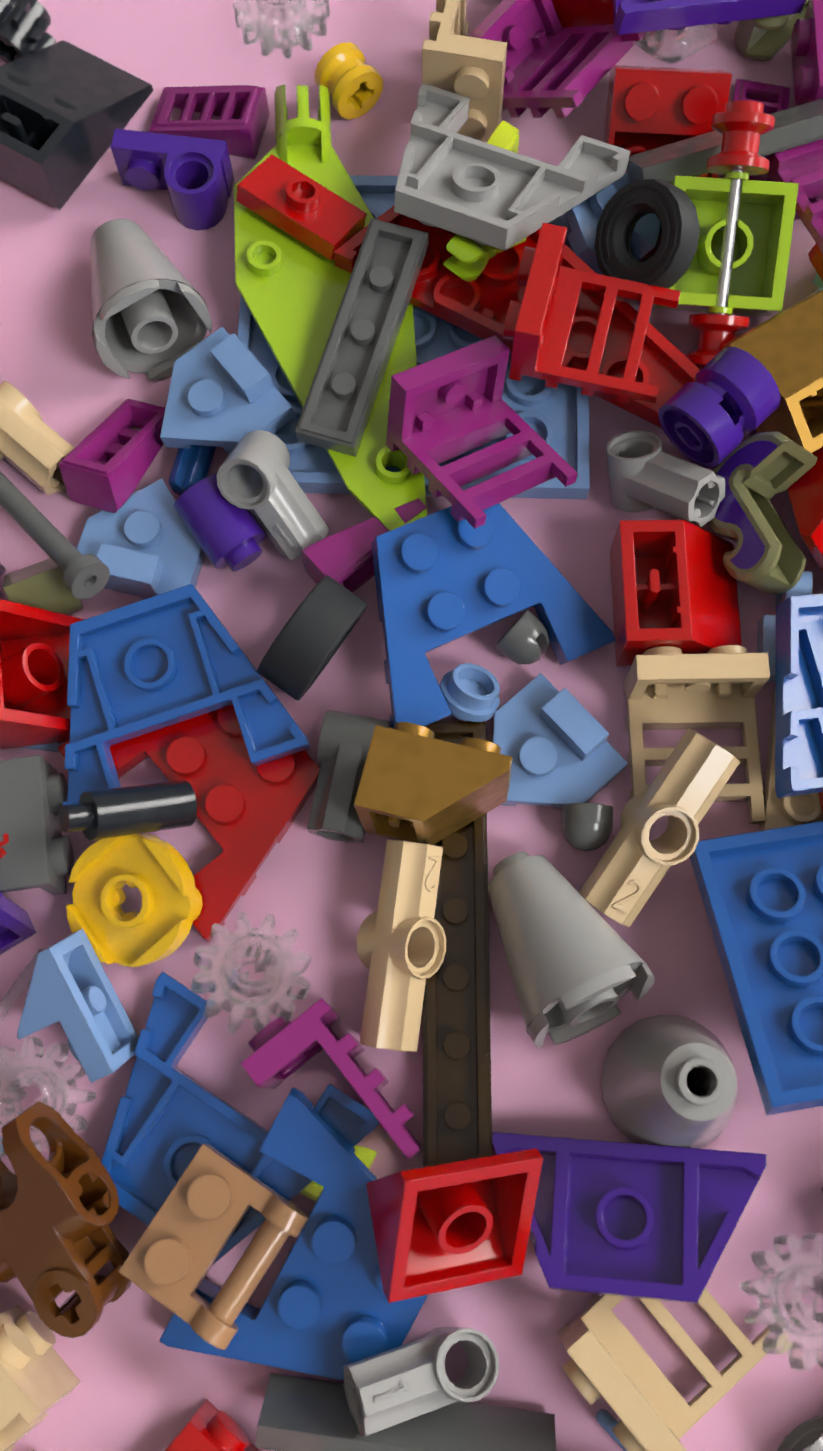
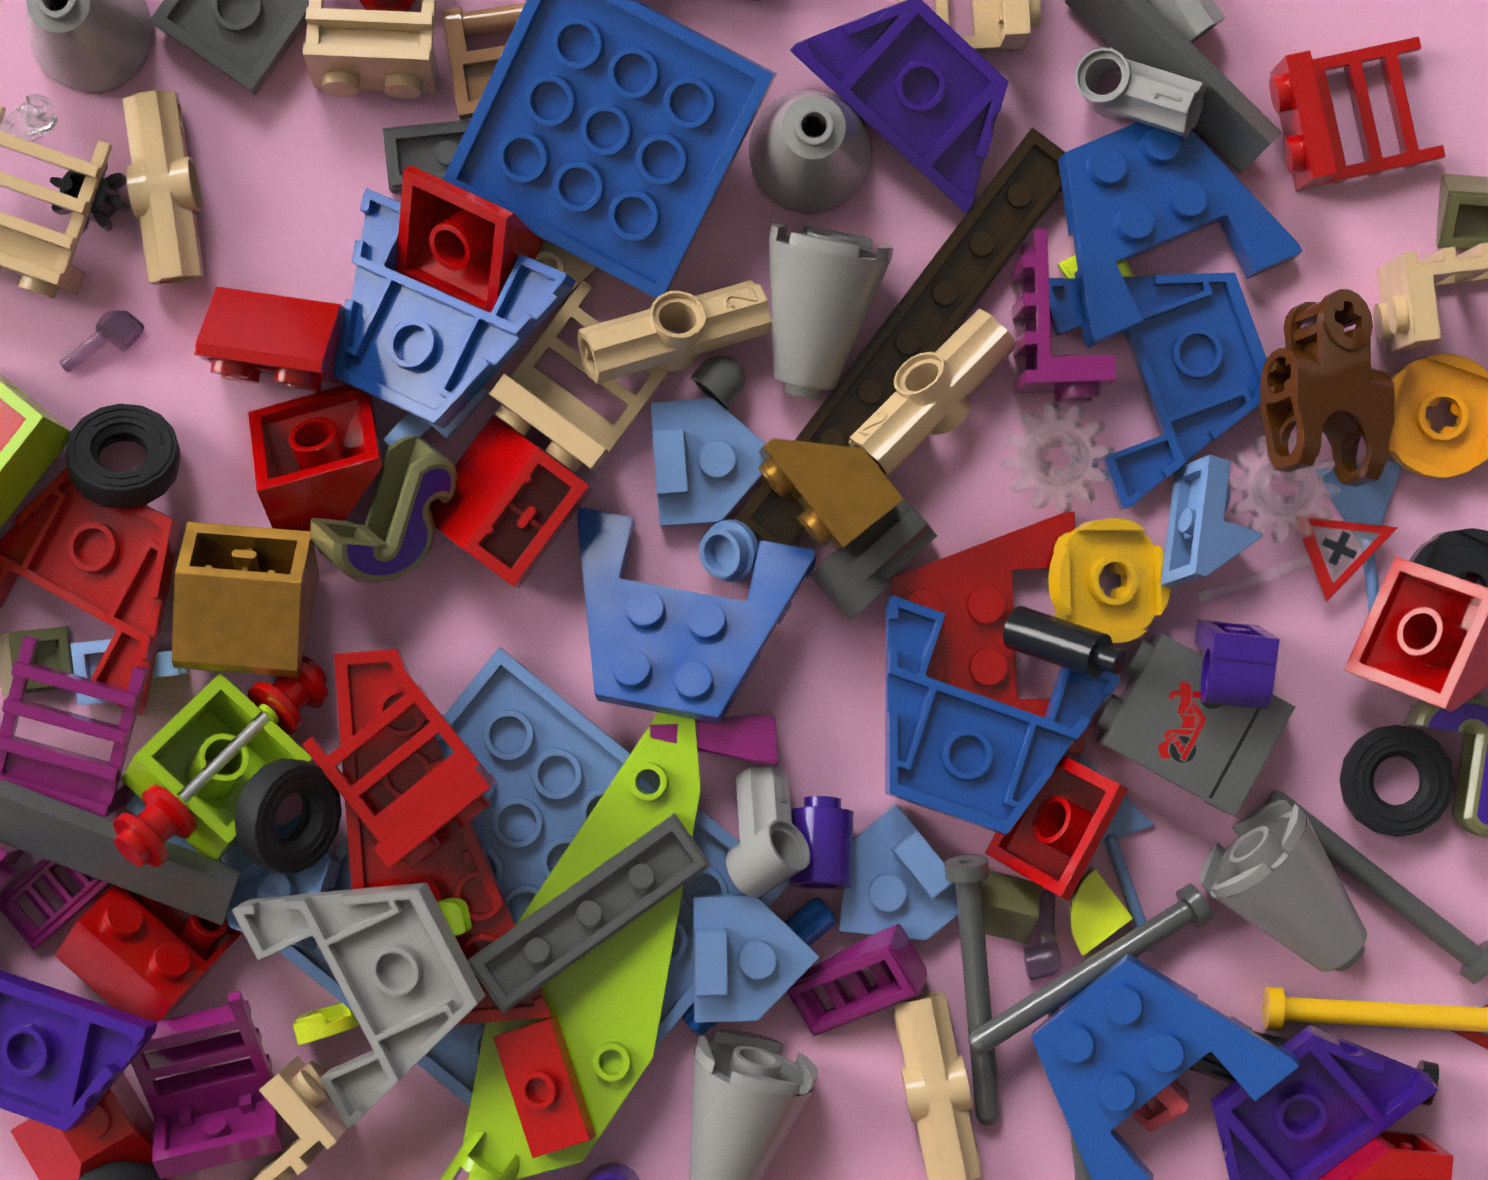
camera: 150 degrees left, 15 degrees up
(192, 1233) = (1225, 303): medium nougat plate -> none
(311, 637) = (824, 680): black tyre -> none
(454, 1223) = (1043, 170): red slope -> none
(456, 407) = (574, 782): magenta plate -> none
(524, 640) = (652, 566): dark grey hinge -> none
(649, 478) = (442, 604): light grey piece -> none
(725, 401) = (358, 618): dark purple wheel -> none

